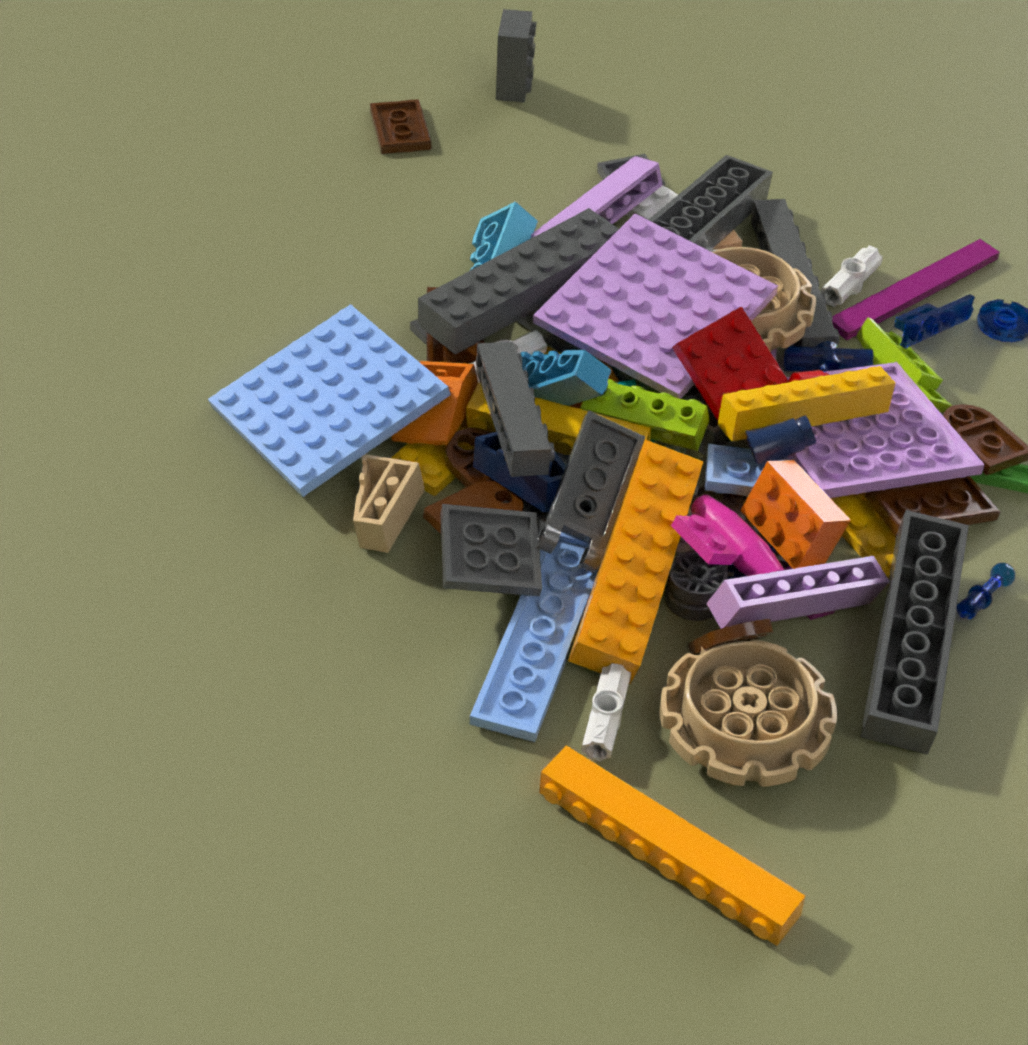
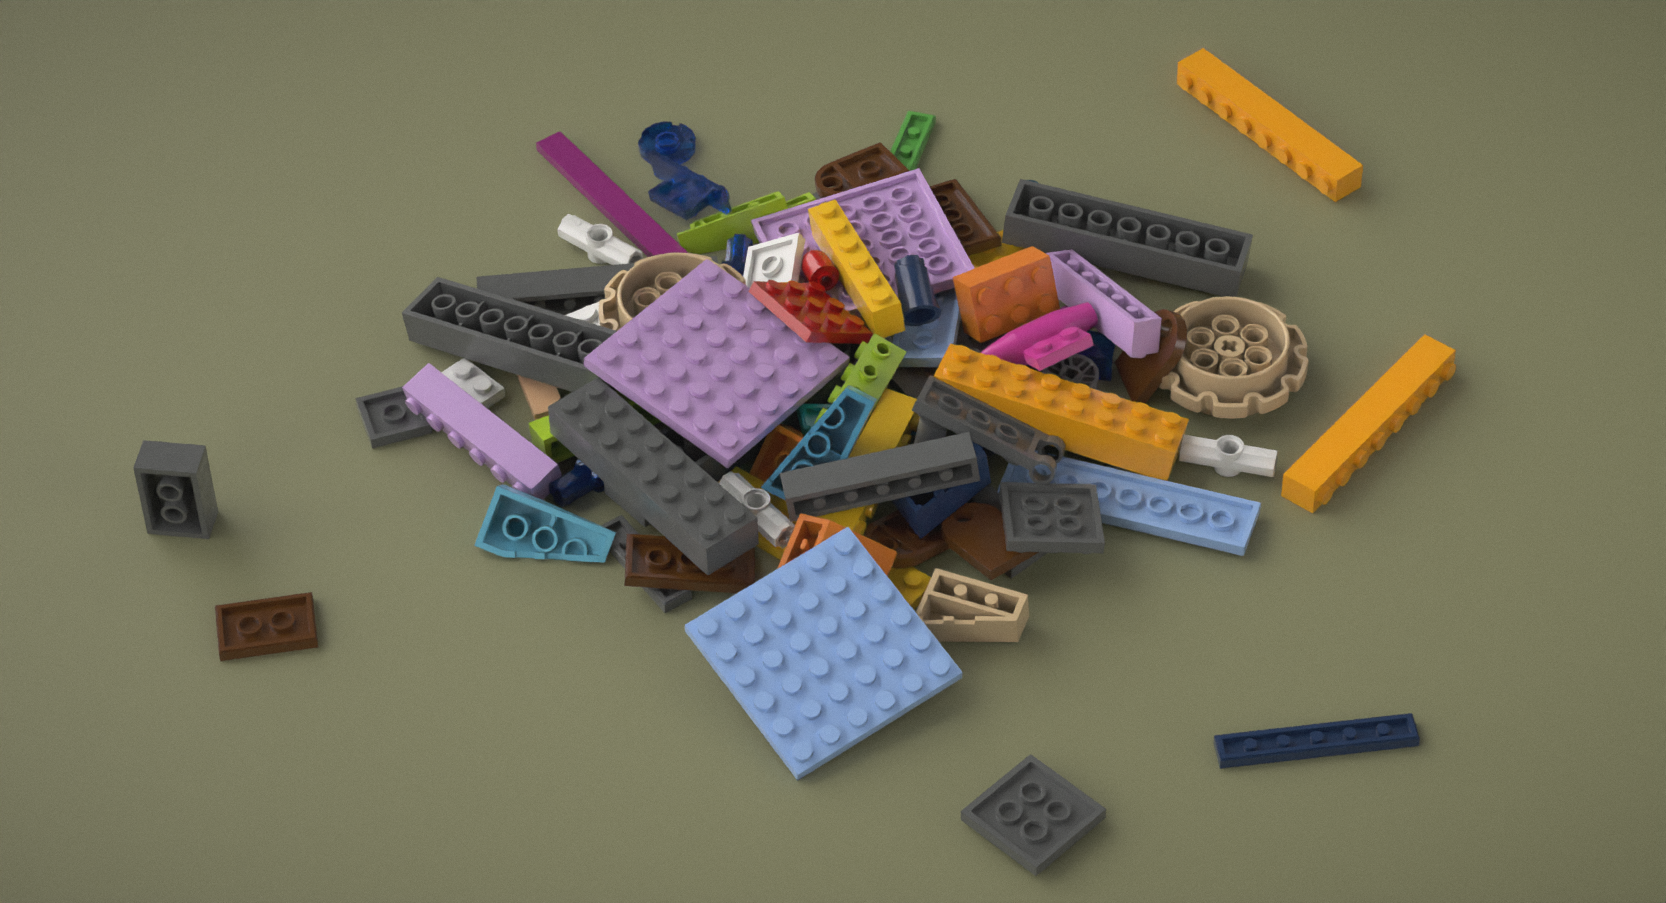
camera: 85 degrees left, 0 degrees up
(138, 547) = (1033, 814): none -> dark grey plate
(208, 774) = (1316, 740): none -> dark blue tile
(825, 360) = (775, 260): none -> white plate

